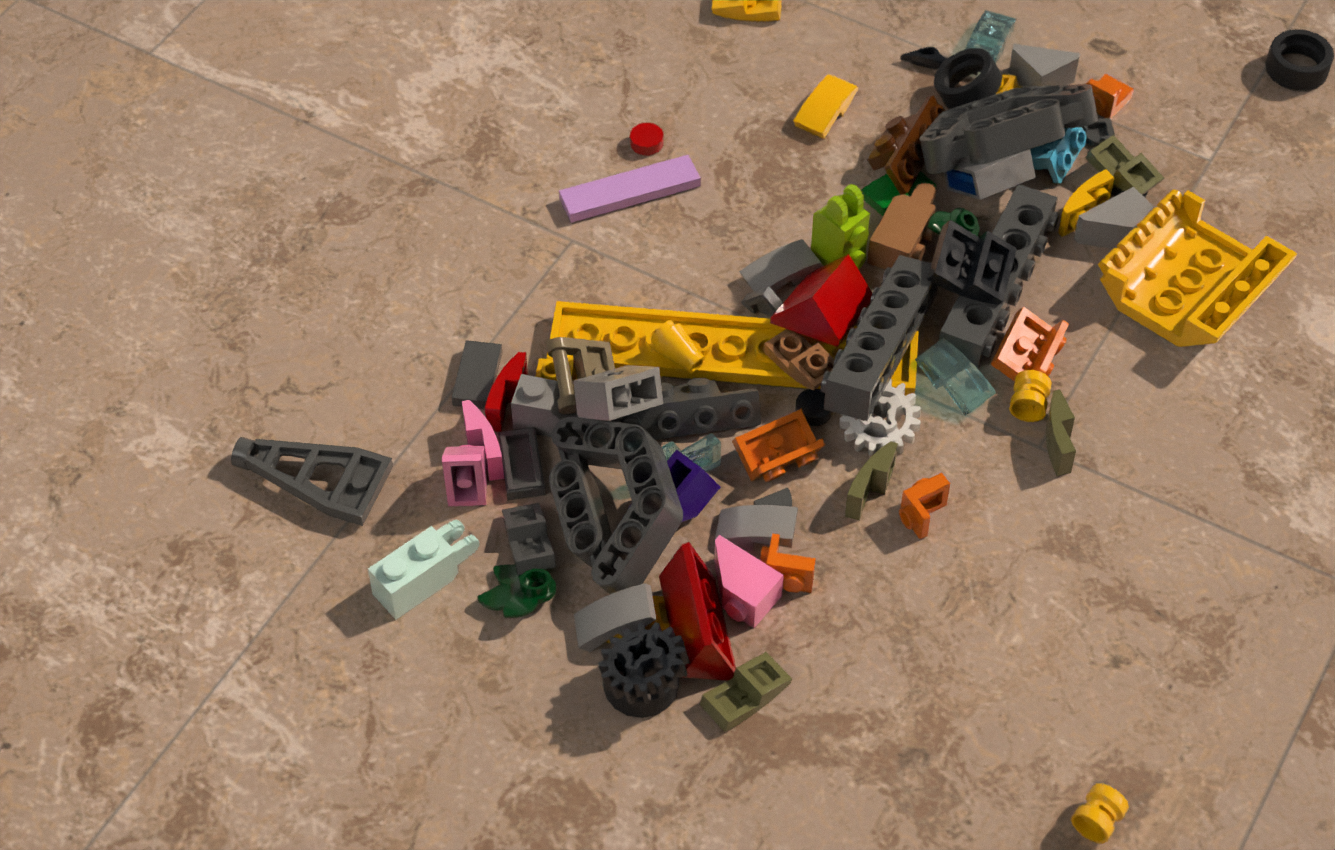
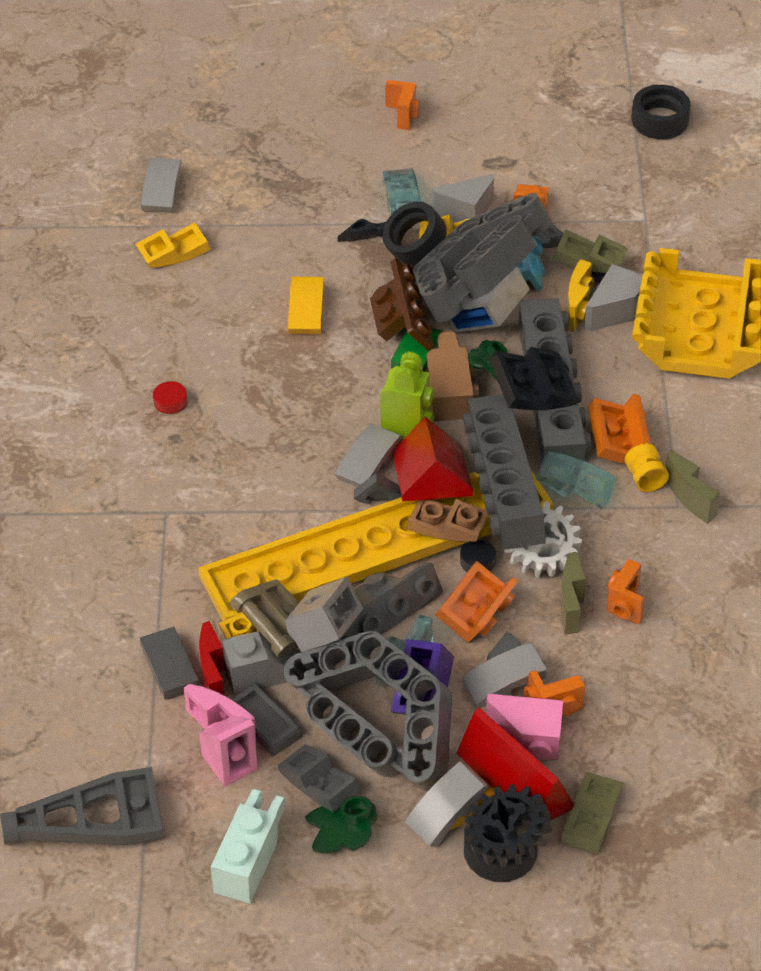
camera: 30 degrees left, 5 degrees down
(629, 188) = (185, 446): lavender tile -> none
(677, 346) = (337, 556): yellow cone -> none

